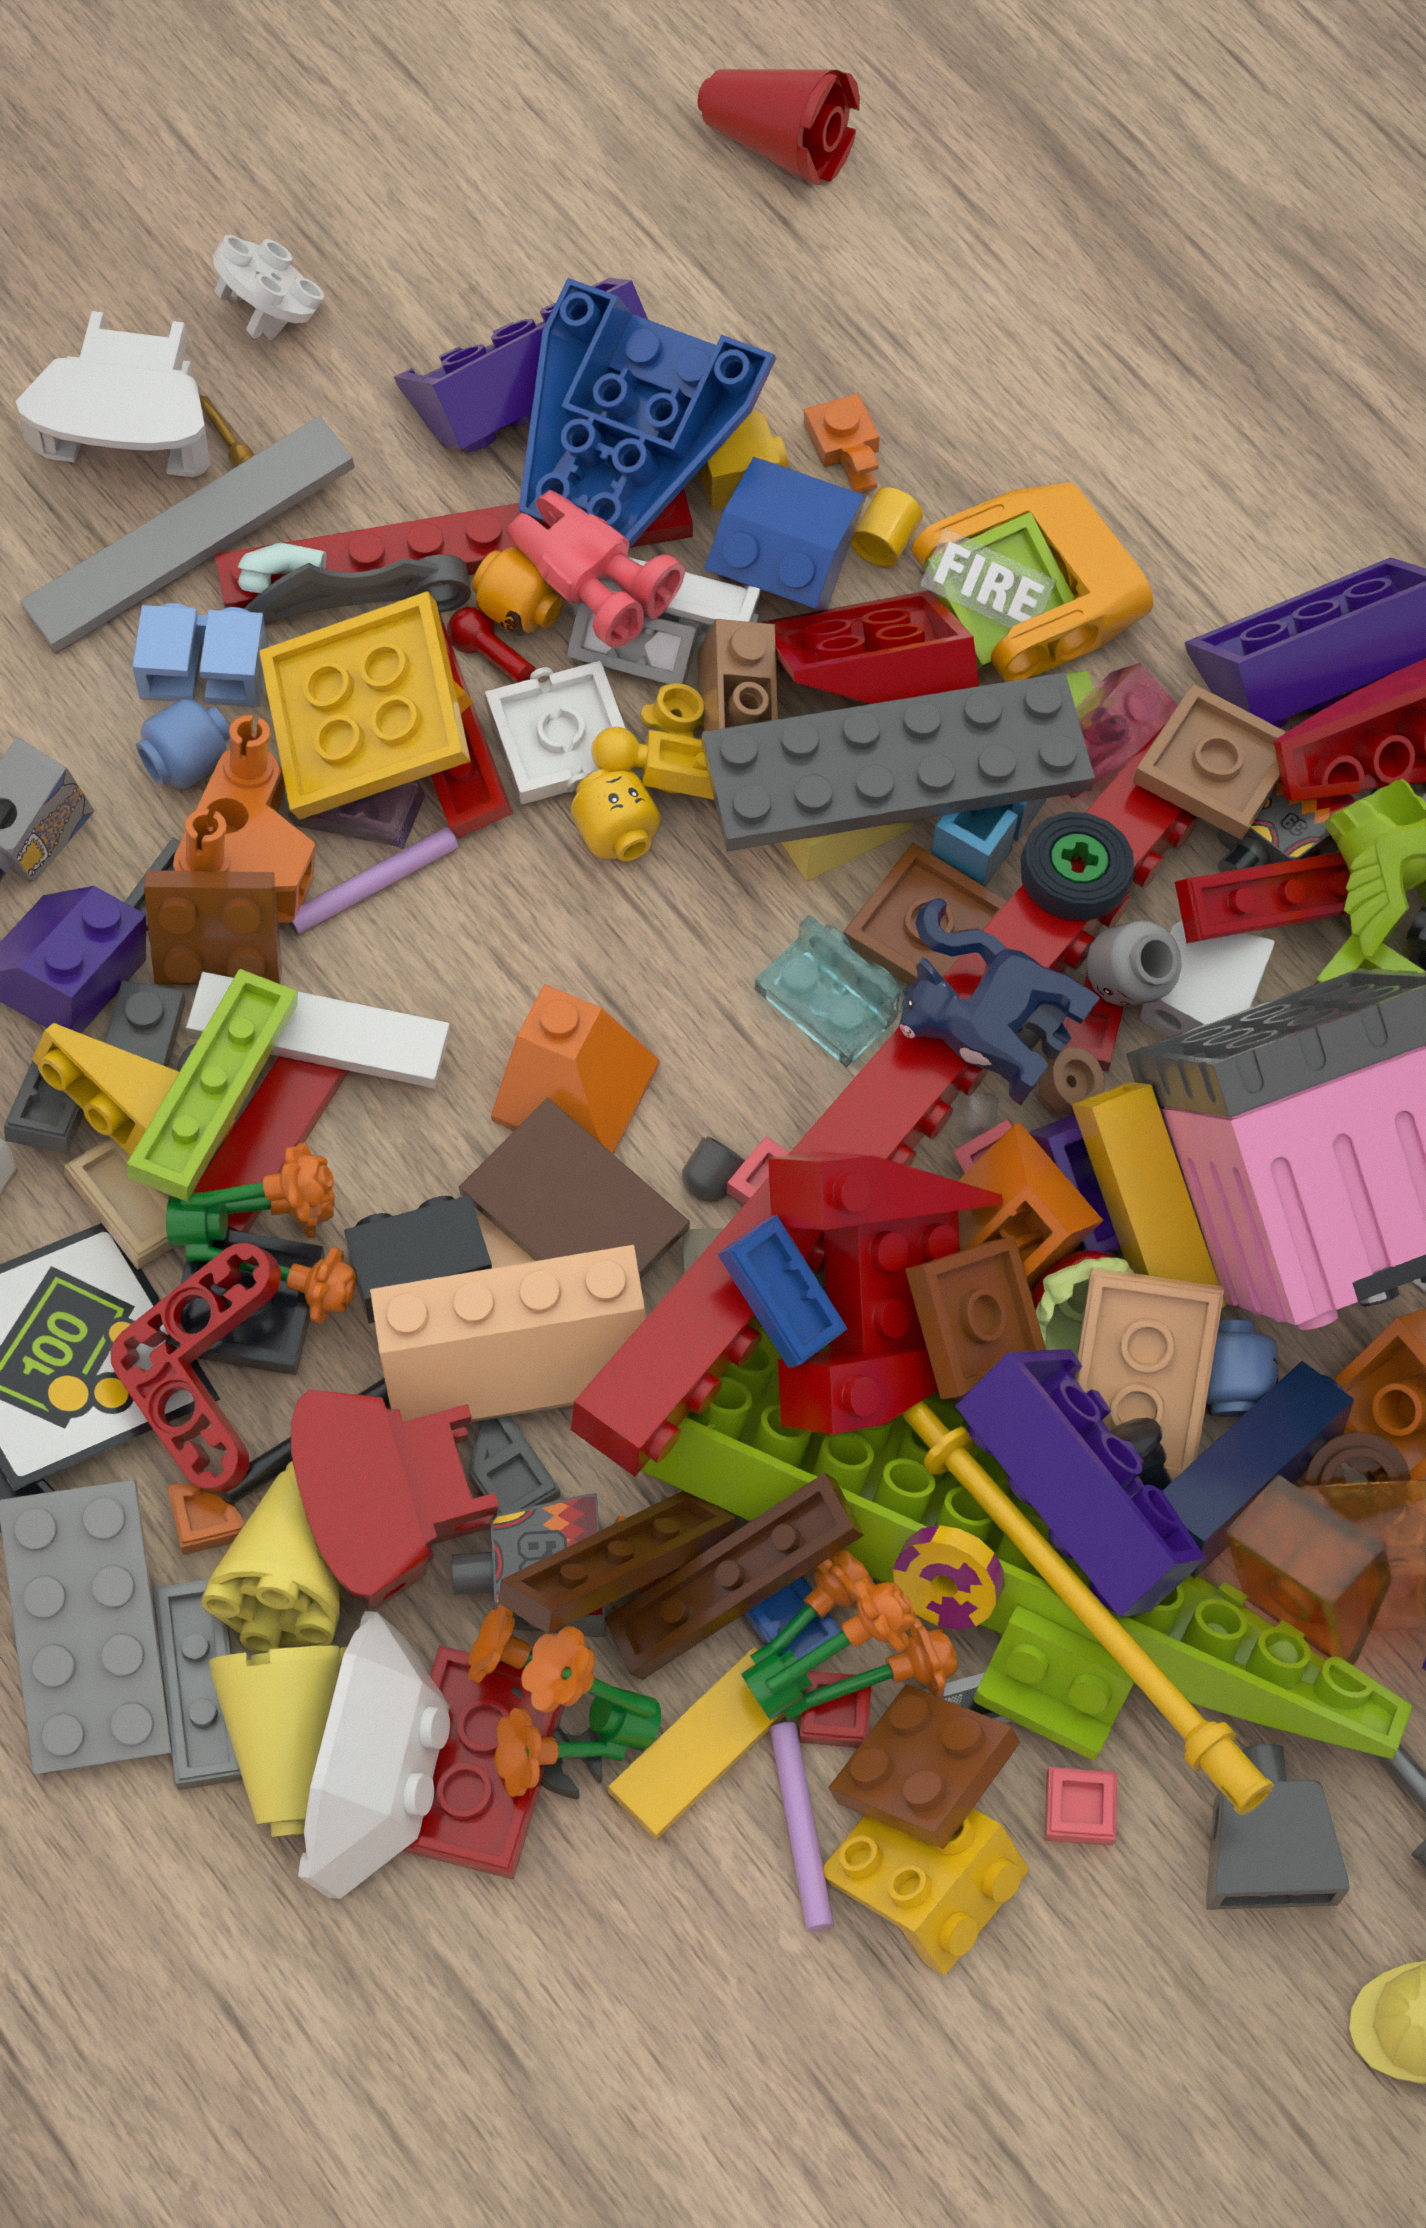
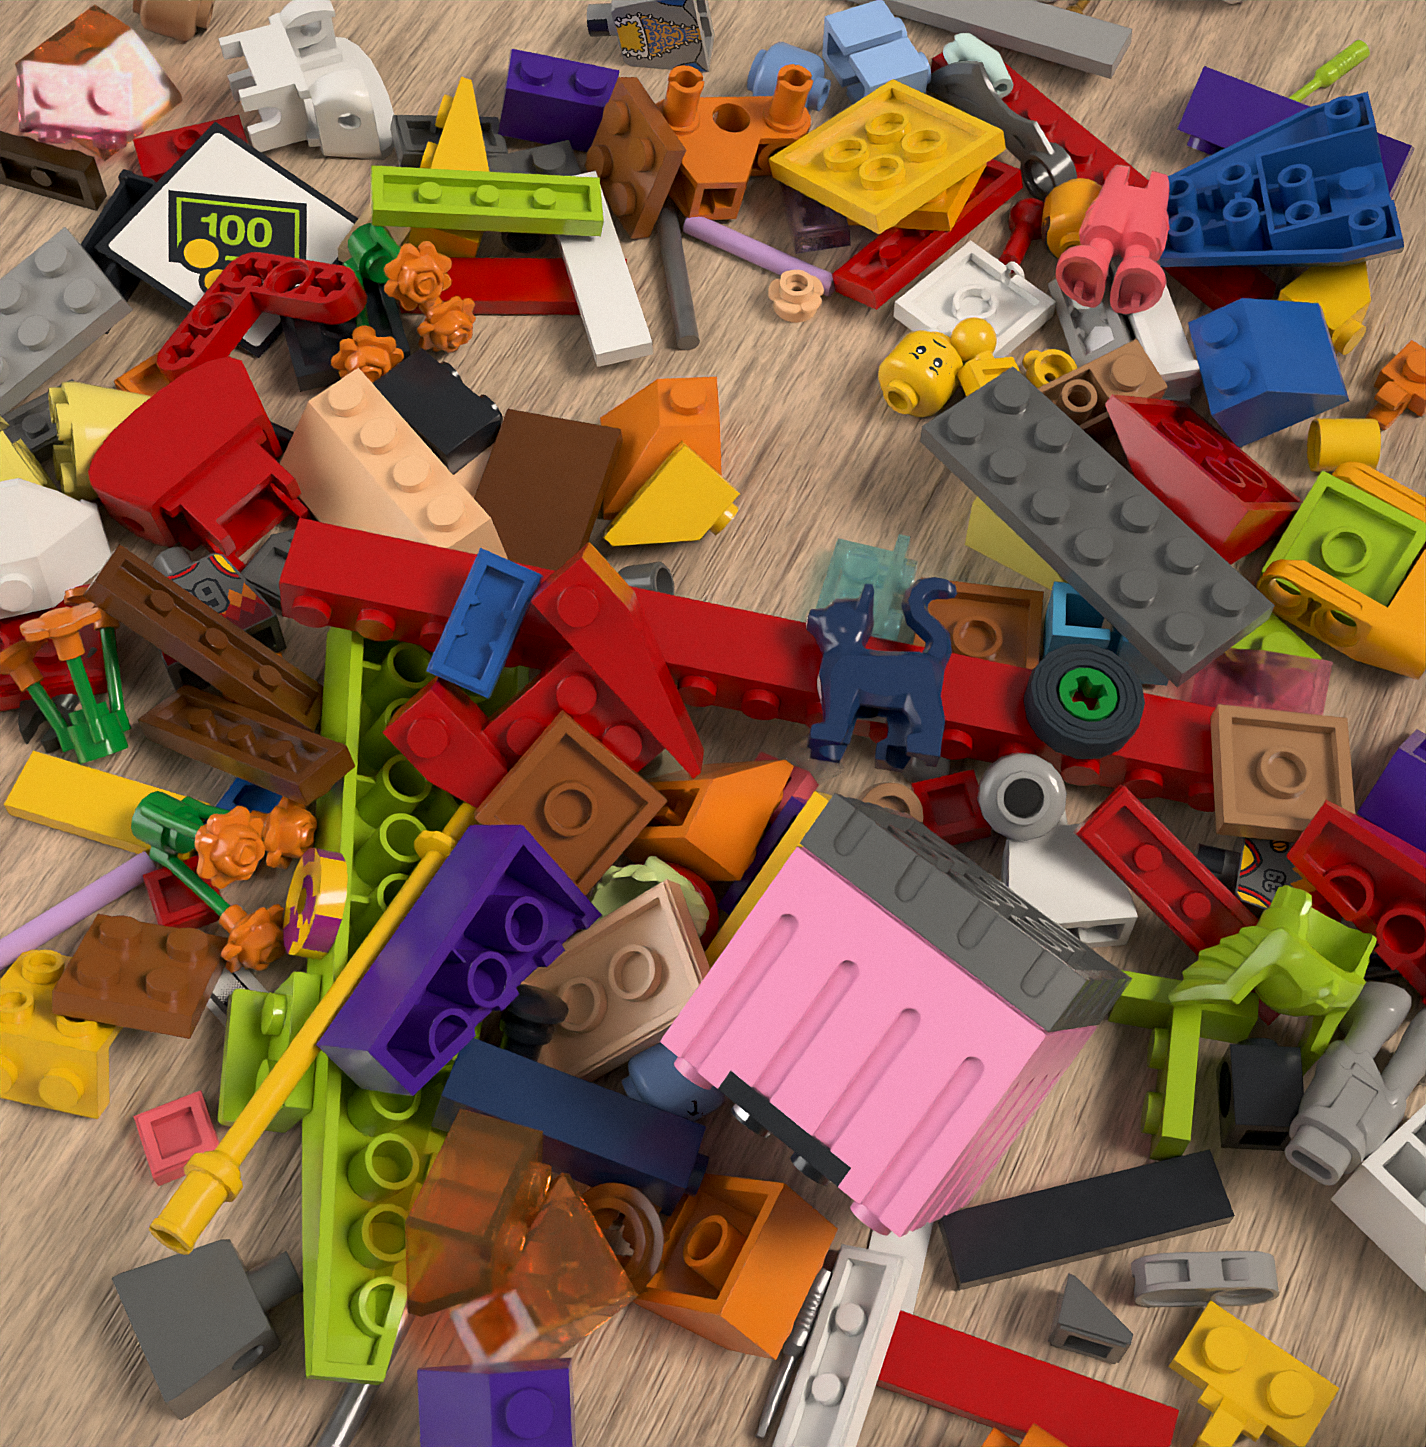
camera: 65 degrees right, 5 degrees down
(363, 969) = (677, 279): none -> flat silver bar
(450, 285) = (1334, 69): none -> lime piece
(450, 887) = (796, 295): none -> light nougat plate
(652, 1096) = (676, 503): none -> yellow slope
(986, 580) = (1340, 526): clear sticker -> none

